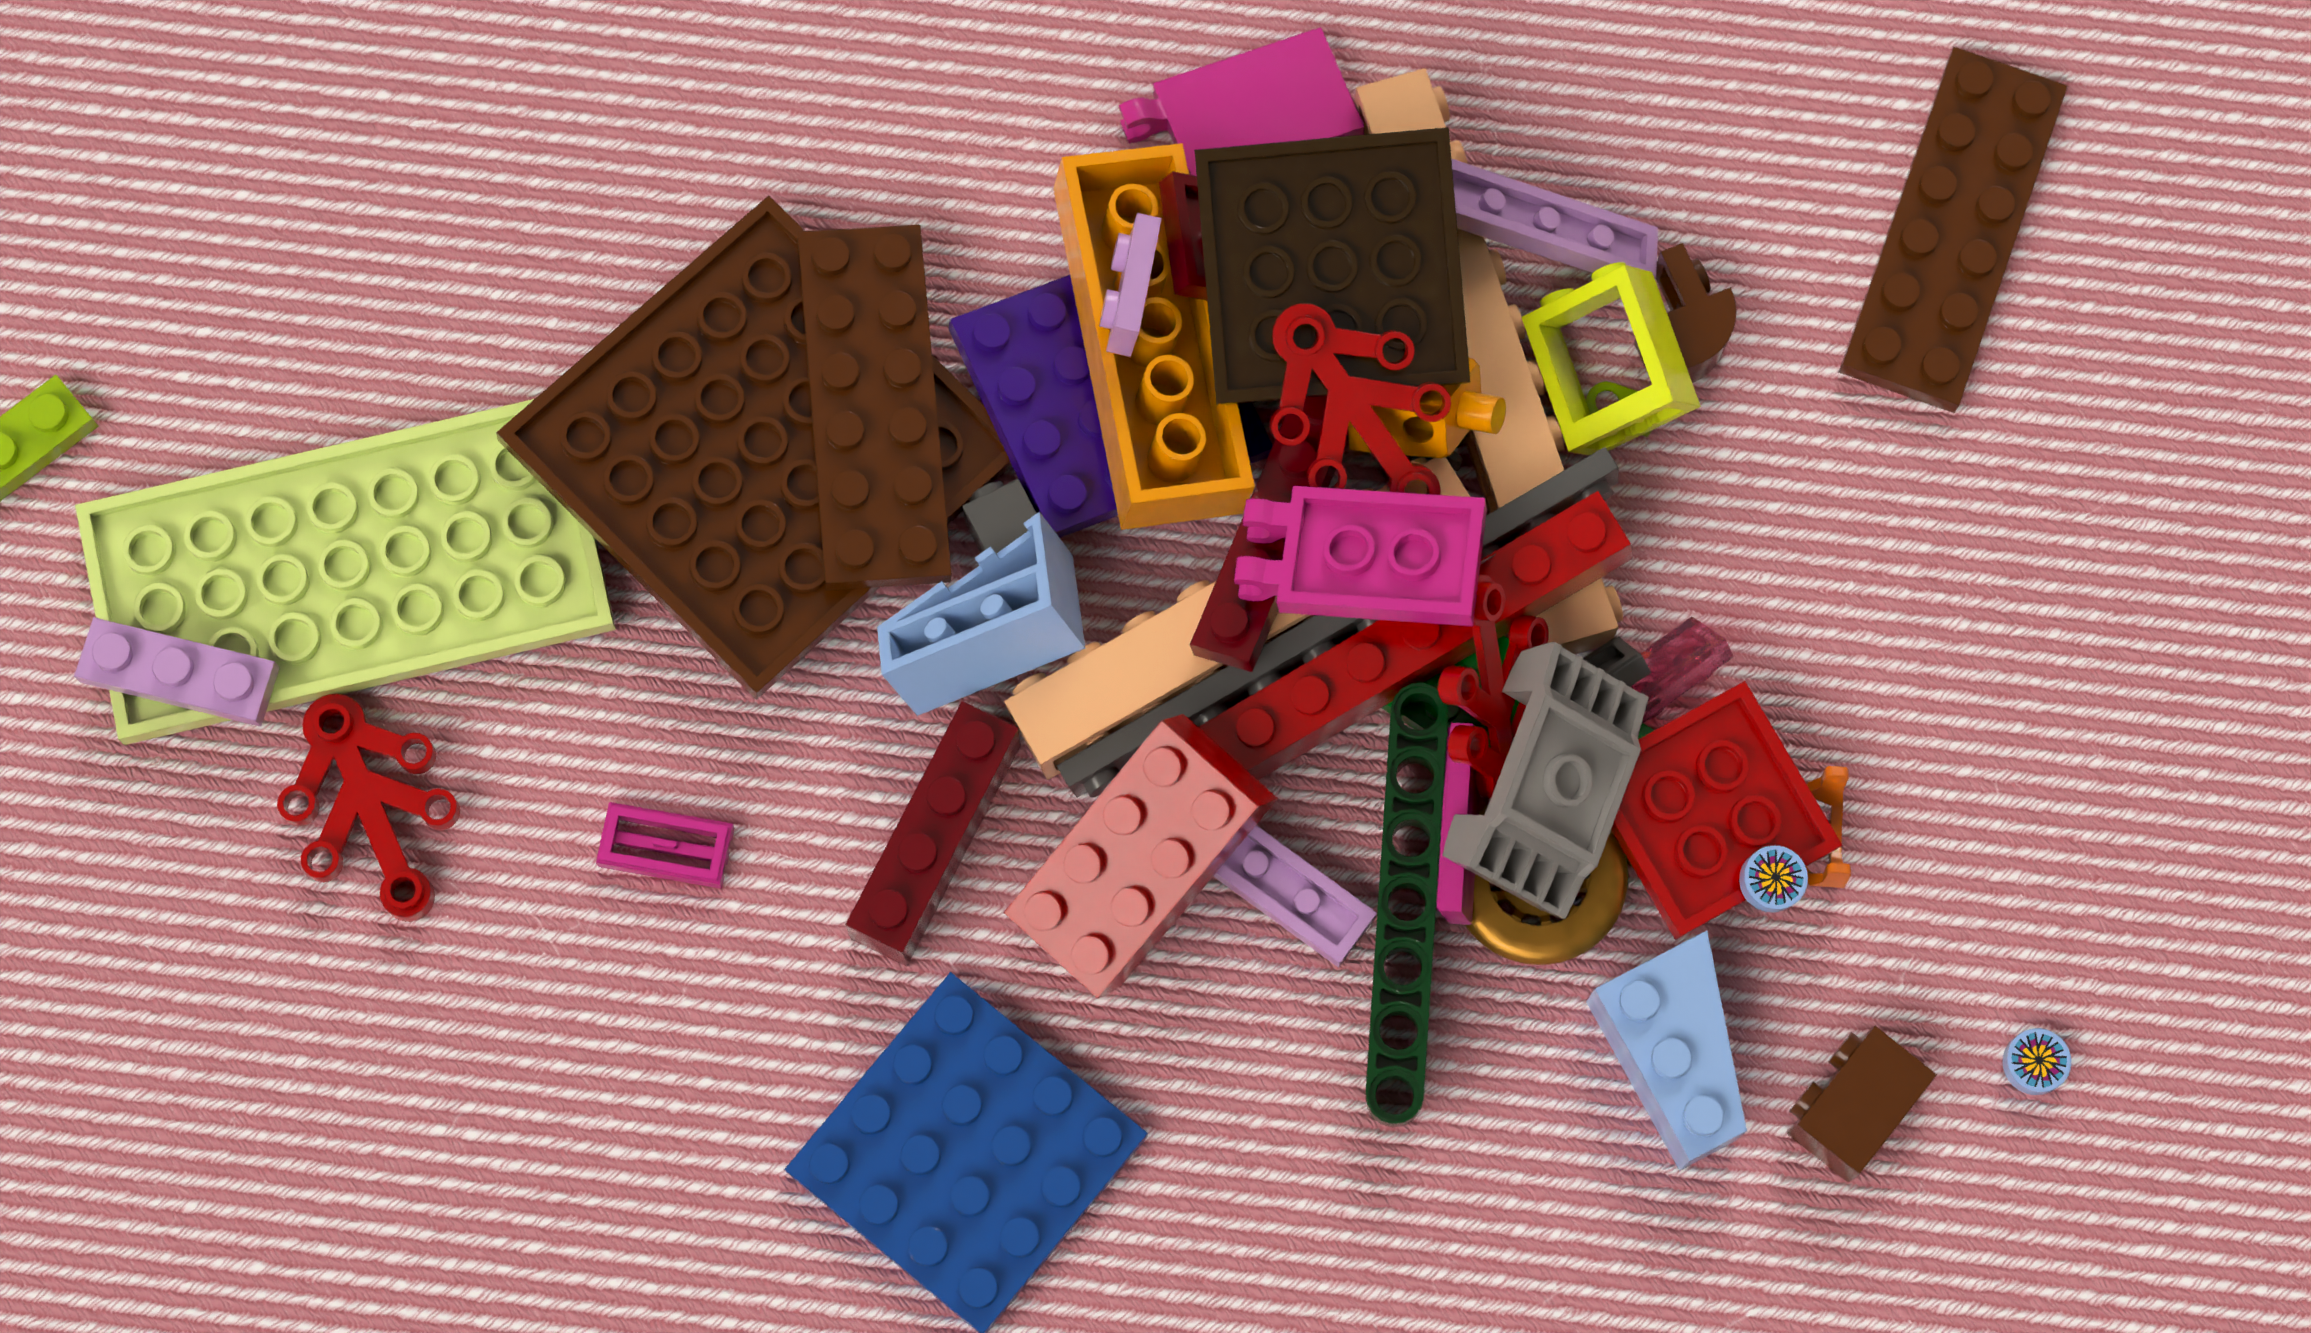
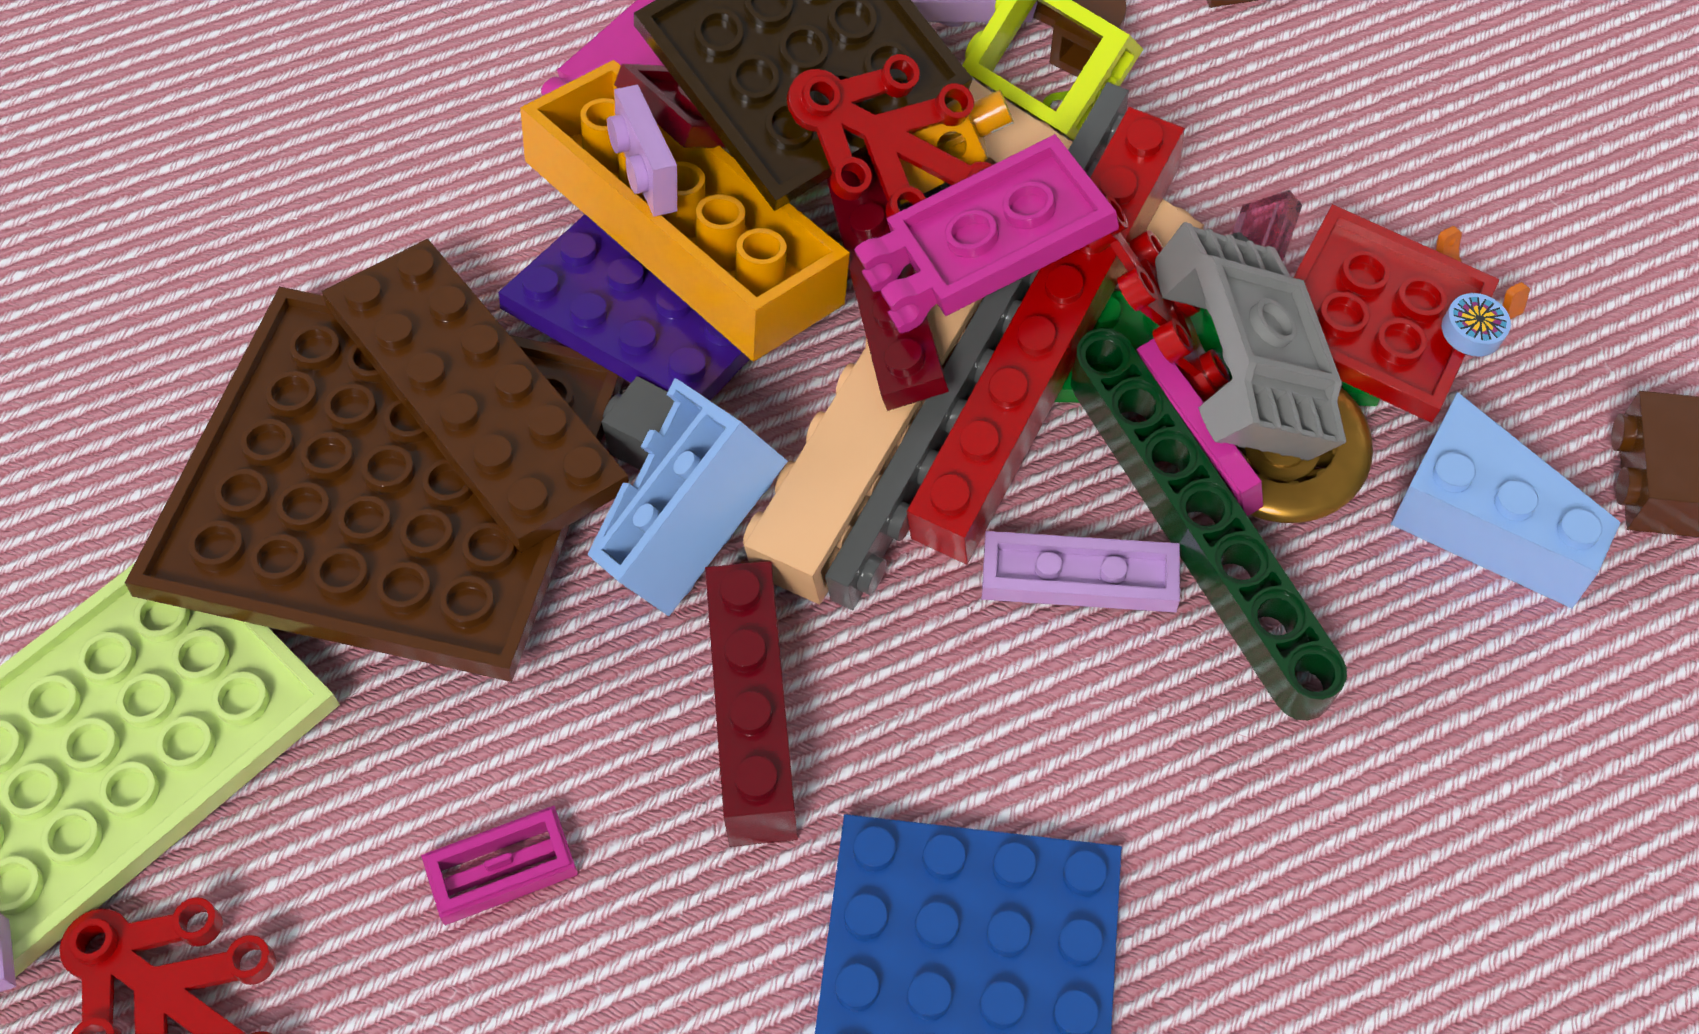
camera: 30 degrees left, 15 degrees down
(1140, 855) = (953, 597): brick -> none

